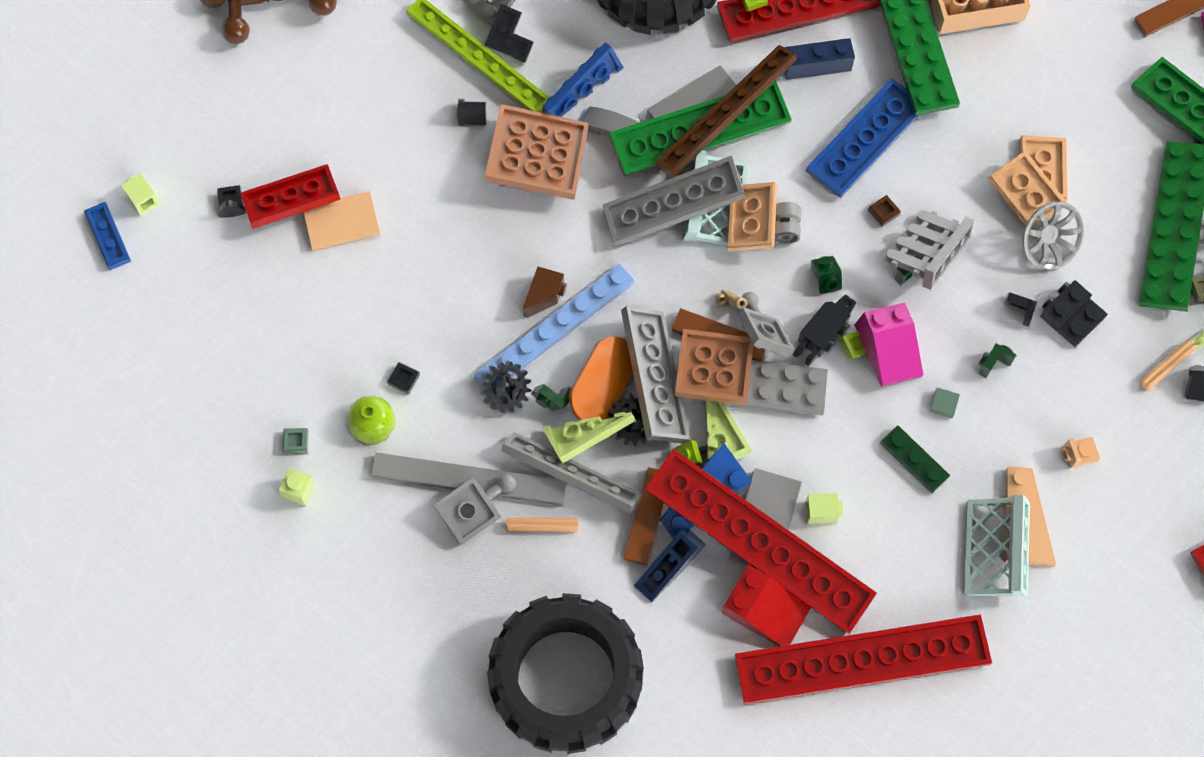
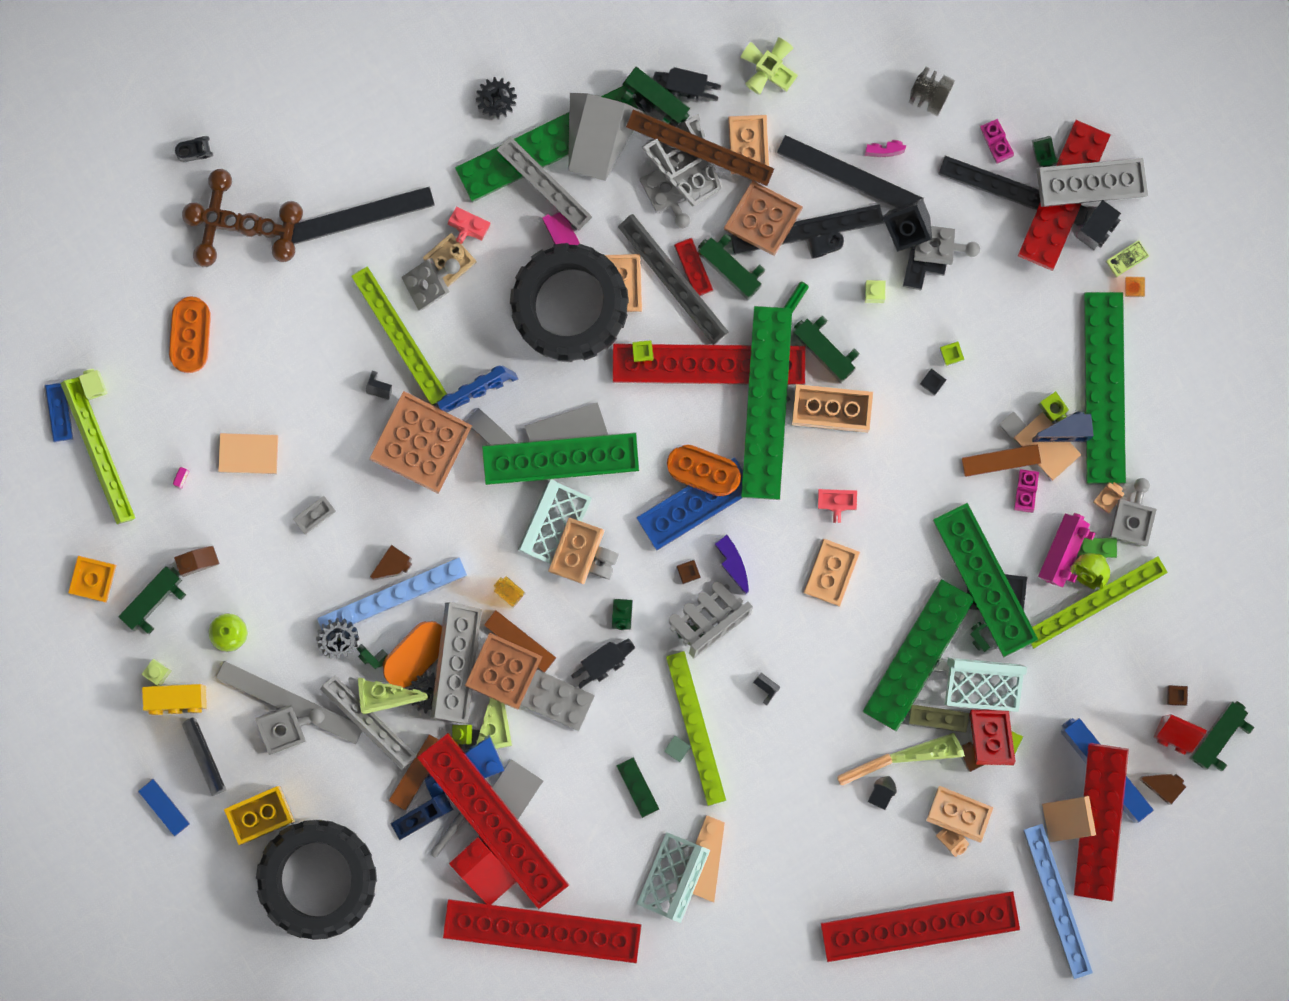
camera: 20 degrees right, 15 degrees up
(163, 262) = (98, 451): none -> lime plate
(191, 404) = (92, 579): none -> light orange plate
(230, 202) = (164, 410): black tile -> none
(240, 117) = (190, 334): none -> orange tile
(267, 406) = (150, 598): none -> dark green brick
(269, 264) = (180, 477): none -> dark pink tile
(290, 196) = (212, 422): red plate -> none
(295, 440) = (165, 632): sand green tile -> none
(311, 350) = (196, 560): none -> reddish brown slope
(326, 508) = (174, 699): none -> yellow brick
(348, 646) = (164, 807): none -> blue tile
(381, 567) = (203, 756): none -> black slope
(403, 378) = (262, 604): black tile -> none
(437, 263) = (314, 515): none -> light grey plate
(470, 618) = (259, 815): none -> yellow brick
(502, 36) = (424, 326): black plate -> none
(518, 524) = (335, 755): light nougat axle -> none
(673, 201) = (516, 521): light grey plate -> none
(689, 280) = (508, 591): none -> clear yellow slope
(709, 576) = (447, 835): none -> light grey bar
(726, 111) = (584, 453): reddish brown plate -> none
(731, 299) = (541, 616): tan arm -> none
(763, 329) = (560, 647): light grey plate -> none
(821, 58) = (679, 421): dark blue brick -> none
(823, 508) = (552, 807): yellowish green brick -> none
(852, 346) = (623, 681): lime plate -> none
(863, 98) = (703, 470): none -> orange tile
(890, 344) = (650, 691): dark pink slope -> none
(933, 186) = (733, 564): none -> dark purple slope
(962, 380) = (696, 728): none -> lime plate
(999, 352) = (723, 725): dark green bracket -> none
(1020, 94) = (837, 501): none -> coral plate
(1025, 187) = (808, 591): light nougat tile -> none
(1048, 234) = (809, 634): light grey wheel -> none
(1073, 313) = (806, 705): black plate -> none
(1080, 452) = (768, 820): light nougat bracket -> none

